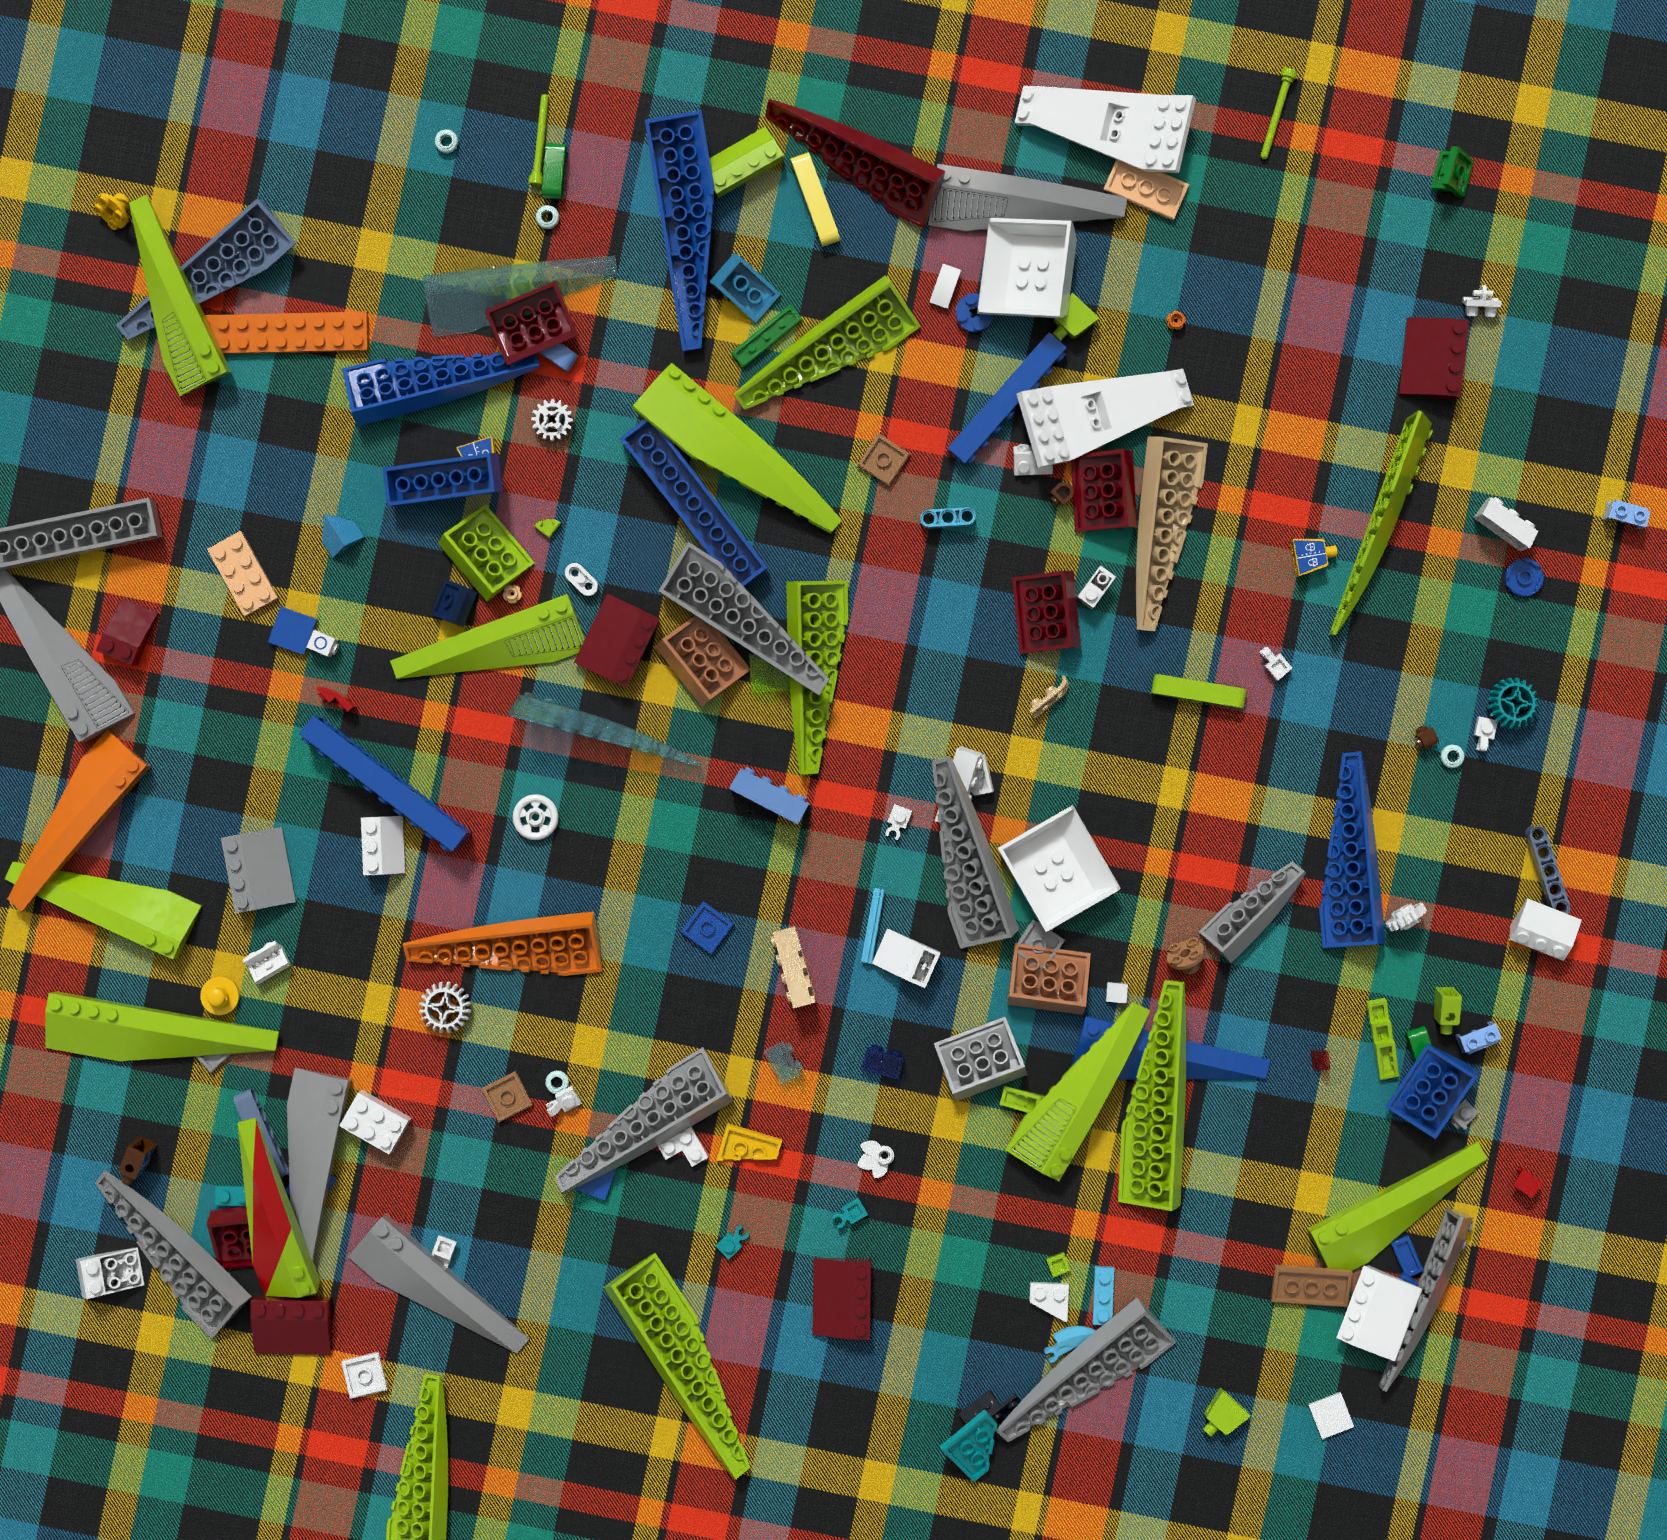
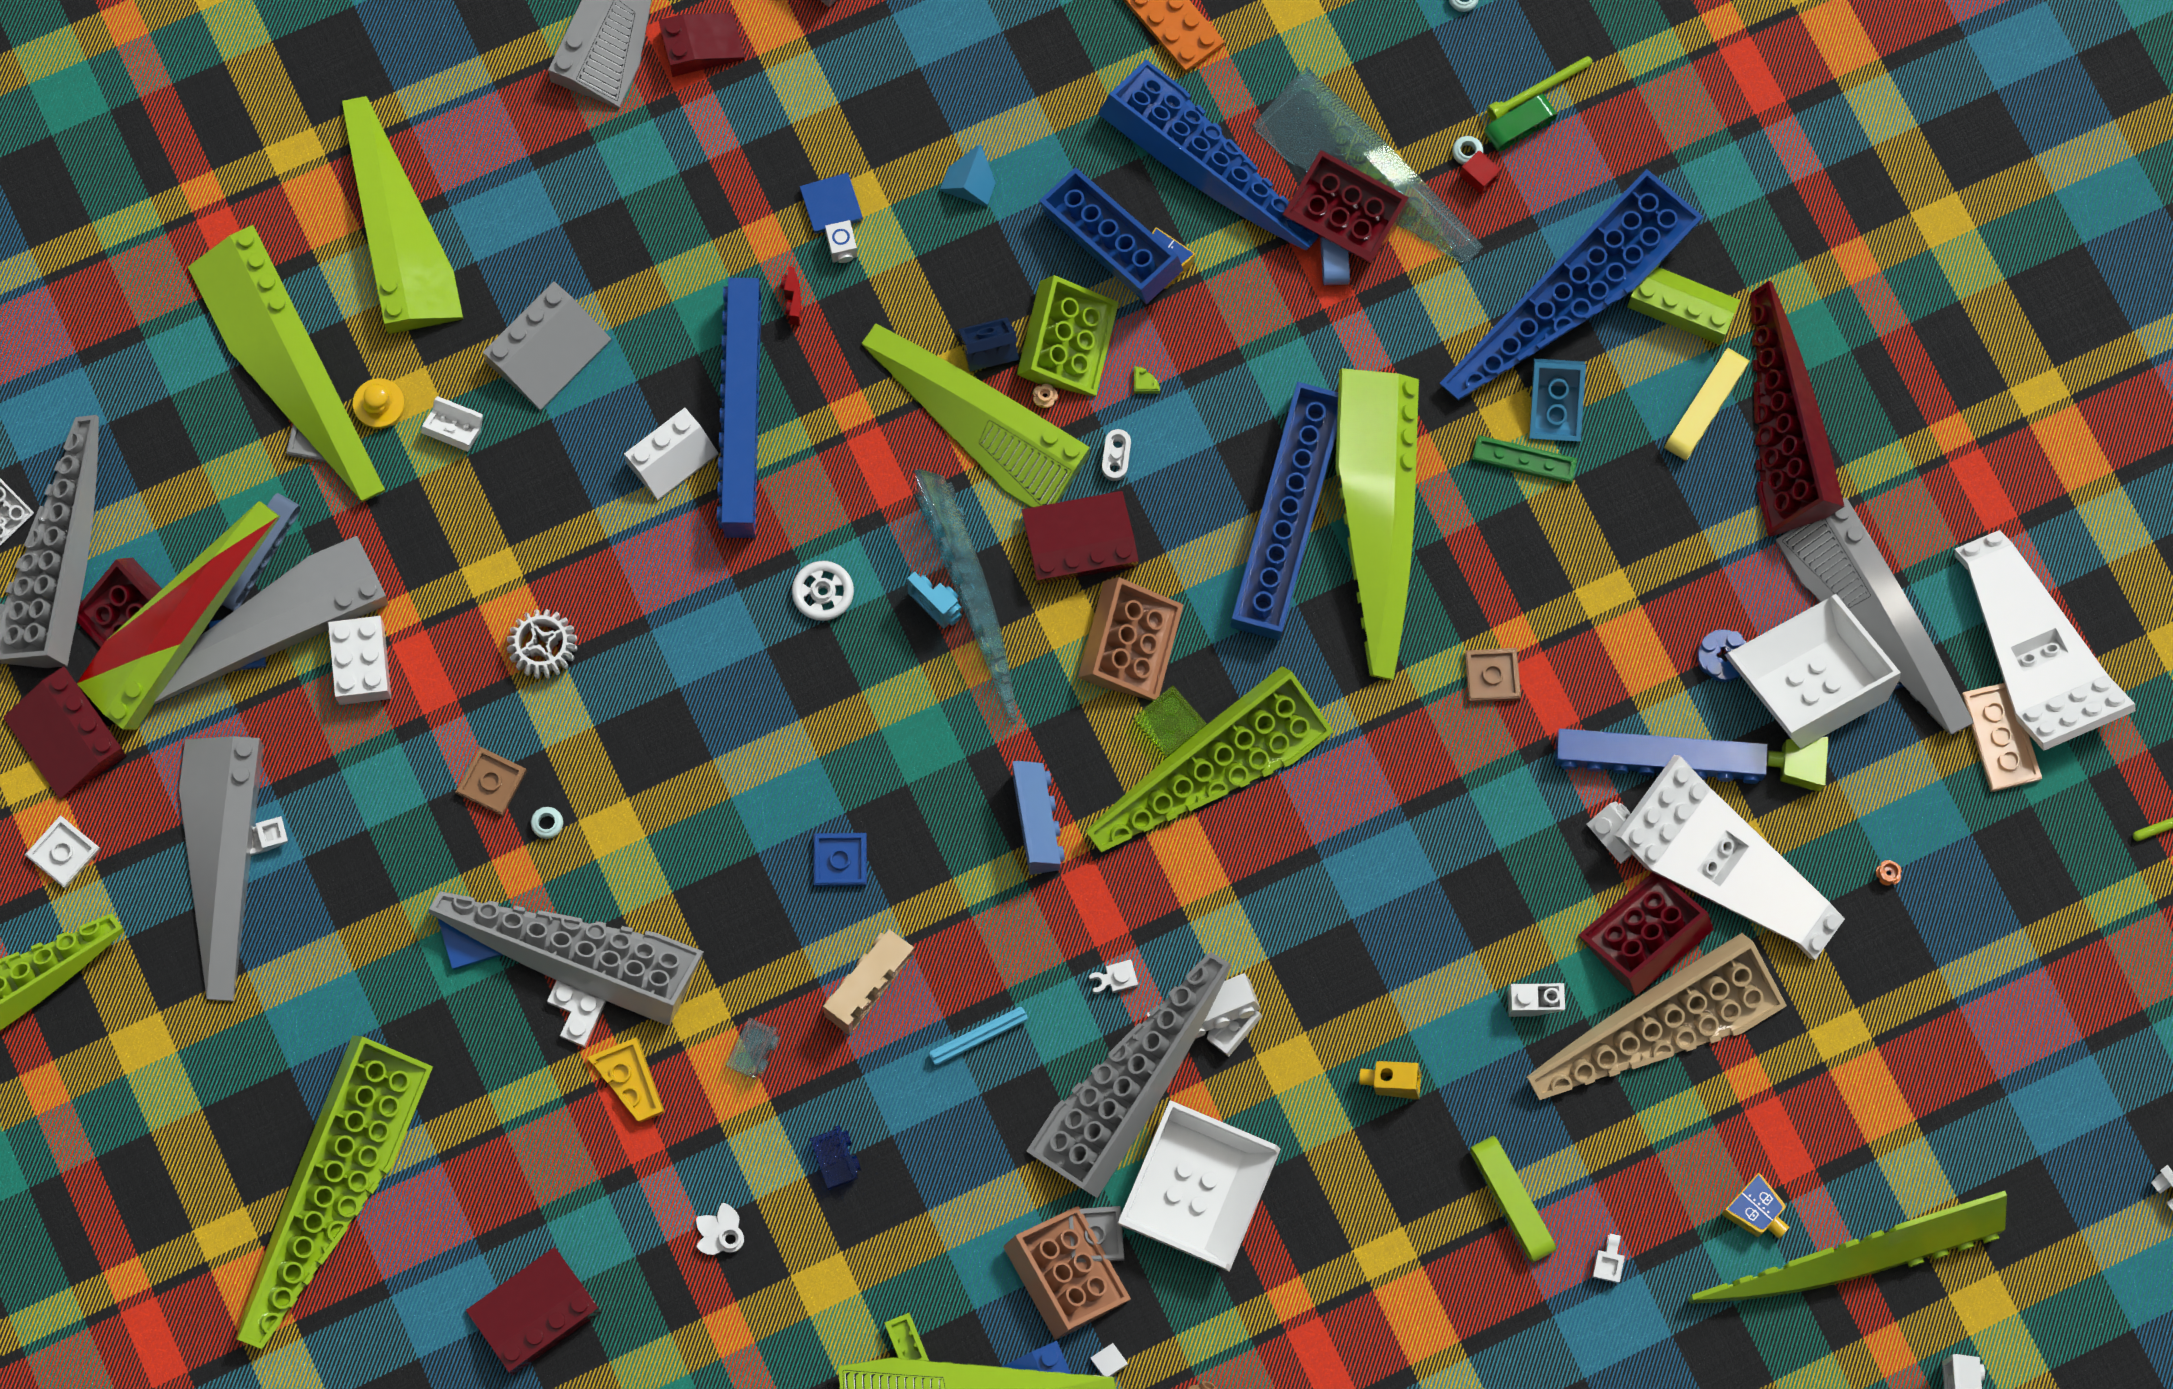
camera: 50 degrees right, 15 degrees down
(92, 793) = (502, 124): orange wedge -> none
(136, 1159) = (133, 441): reddish brown torso -> none
(229, 1195) = (161, 566): teal plate -> none
(243, 573) = (852, 112): light nougat plate -> none
(542, 944) = (690, 700): orange wedge -> none
(546, 425) = (1272, 306): white gear -> none
(564, 1100) = (534, 845): white plate -> none
(567, 221) = (1480, 172): none -> red panel
(597, 755) = (939, 602): none -> medium azure plate
(719, 599) = (1208, 607): light grey wedge -> none
(730, 1243) = (503, 1142): teal plate -> none
(852, 1211) = (639, 1250): teal plate -> none
(855, 331) = (1606, 547): lime wedge -> none
(906, 958) = (971, 1098): white slope -> none
(945, 285) = (1727, 603): white slope -> none
(955, 512) = (1483, 774): medium azure beam -> none
(980, 1059) = (919, 1264): light grey slope -> none
(1046, 612) = (1468, 968): dark red slope -> none
(1052, 695) = (1383, 1040): tan piece -> none
(1062, 493) = (1607, 888): reddish brown plate -> none
(1086, 701) = (1404, 1081): none -> yellow torso
(1433, 357) = (2076, 1180): dark red slope -> none

